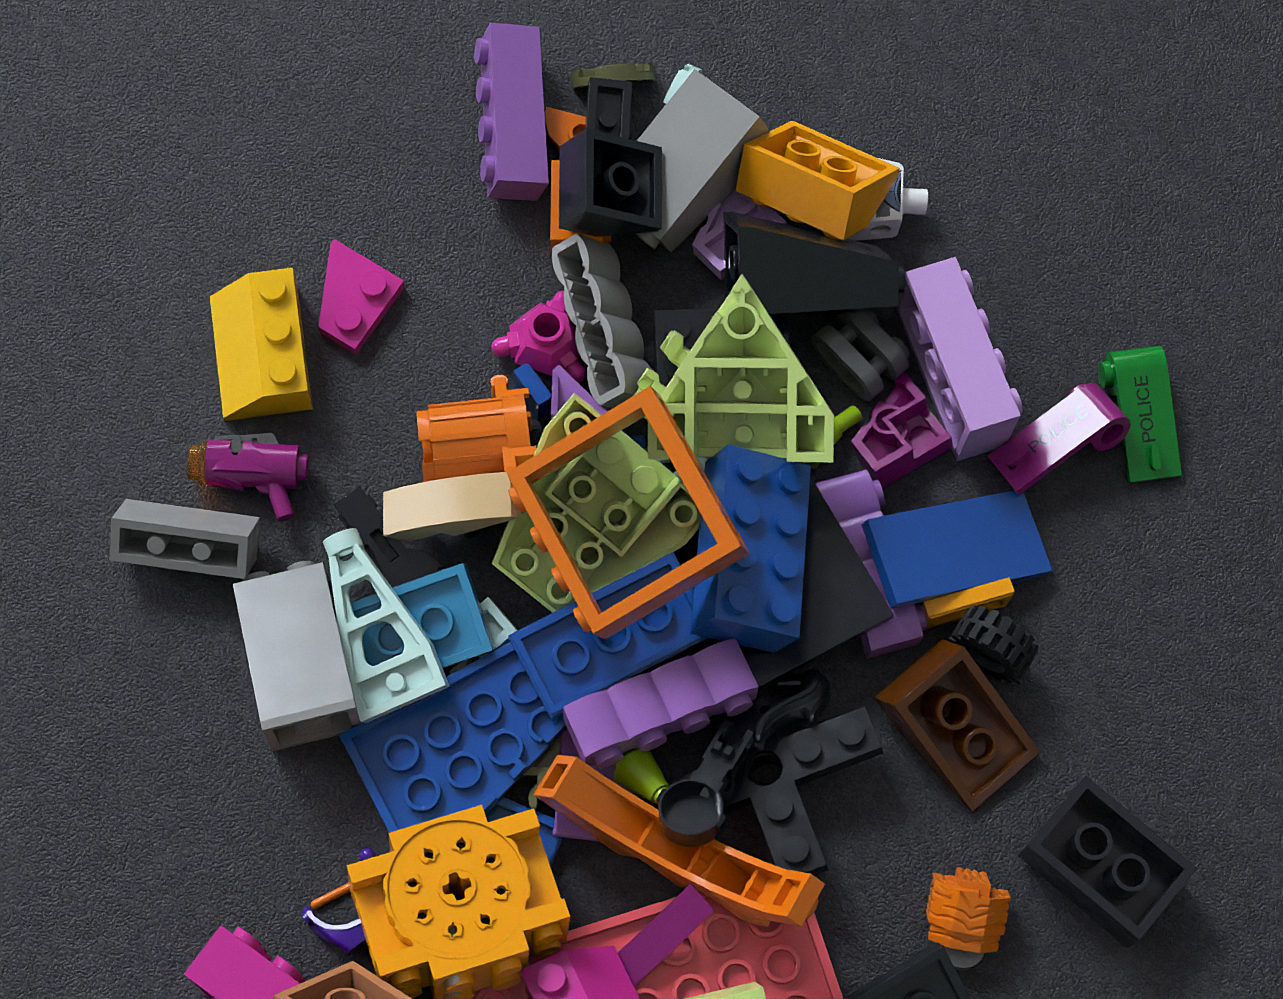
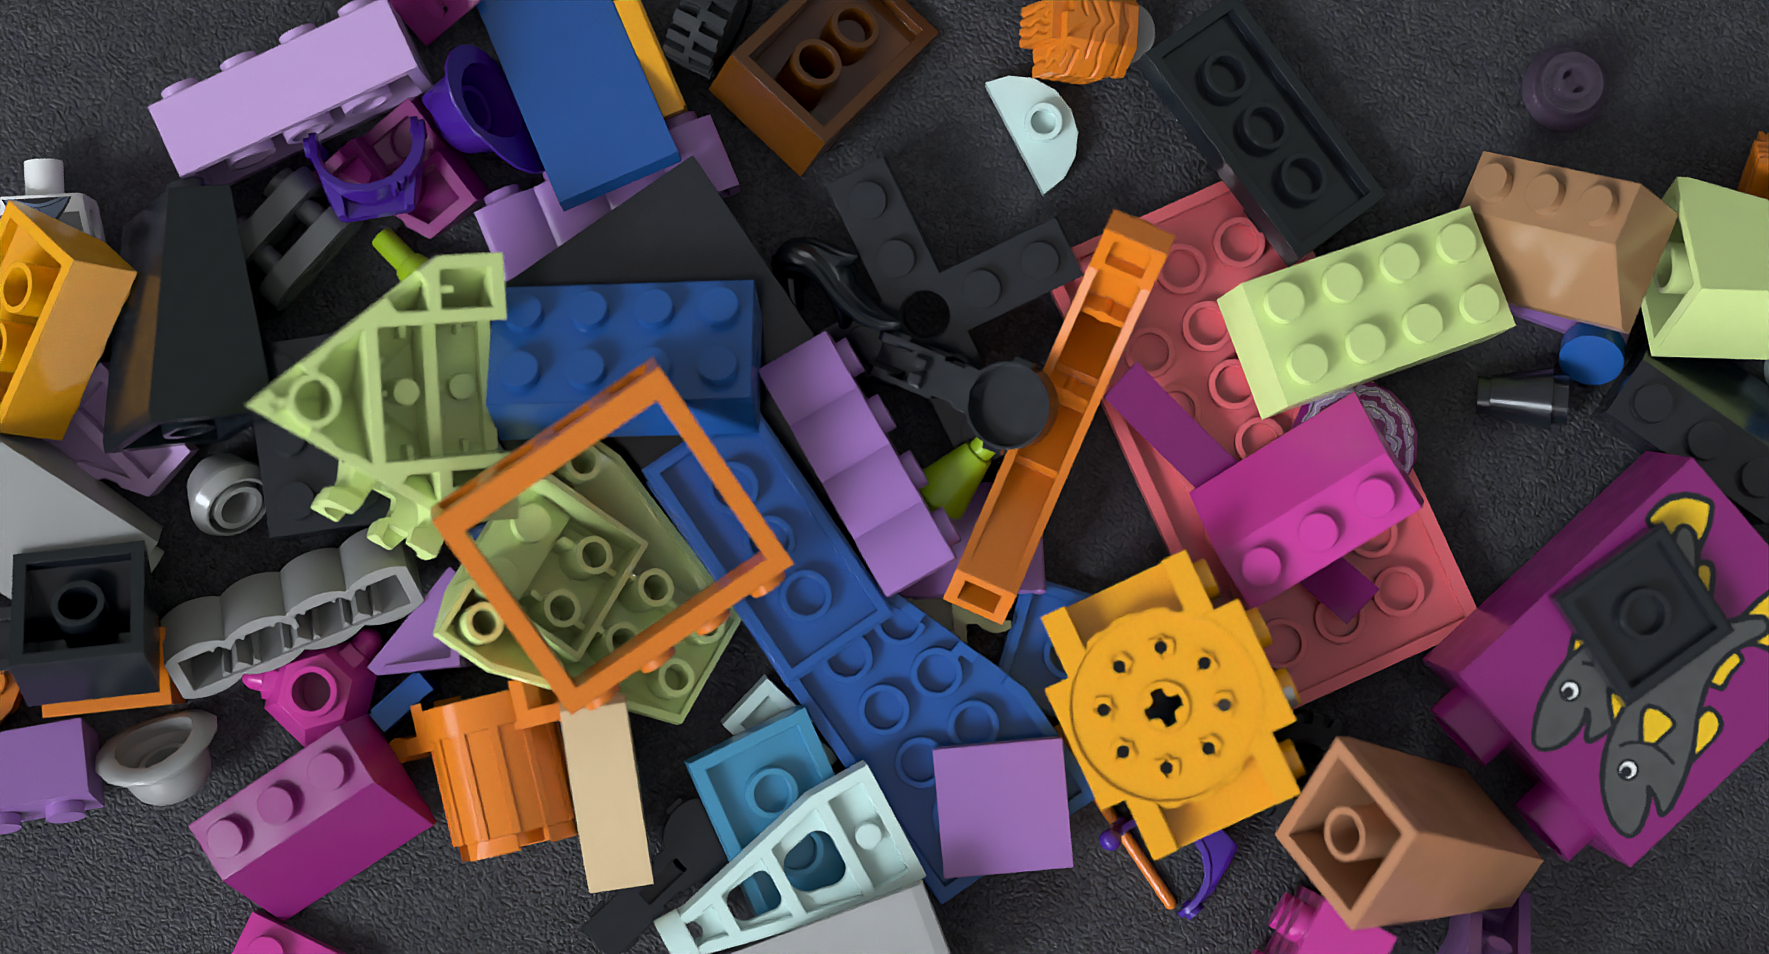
camera: 90 degrees left, 15 degrees up
(400, 780) = (1002, 807): none -> medium lavender tile
(460, 321) = (314, 820): none -> magenta slope
(515, 232) = (160, 757): none -> light grey hat
(687, 288) = (225, 494): none -> light grey cone
(882, 411) = (377, 199): none -> dark purple helmet
(895, 875) = (1038, 125): none -> light aqua plate
(940, 478) = (479, 111): none -> dark purple piece

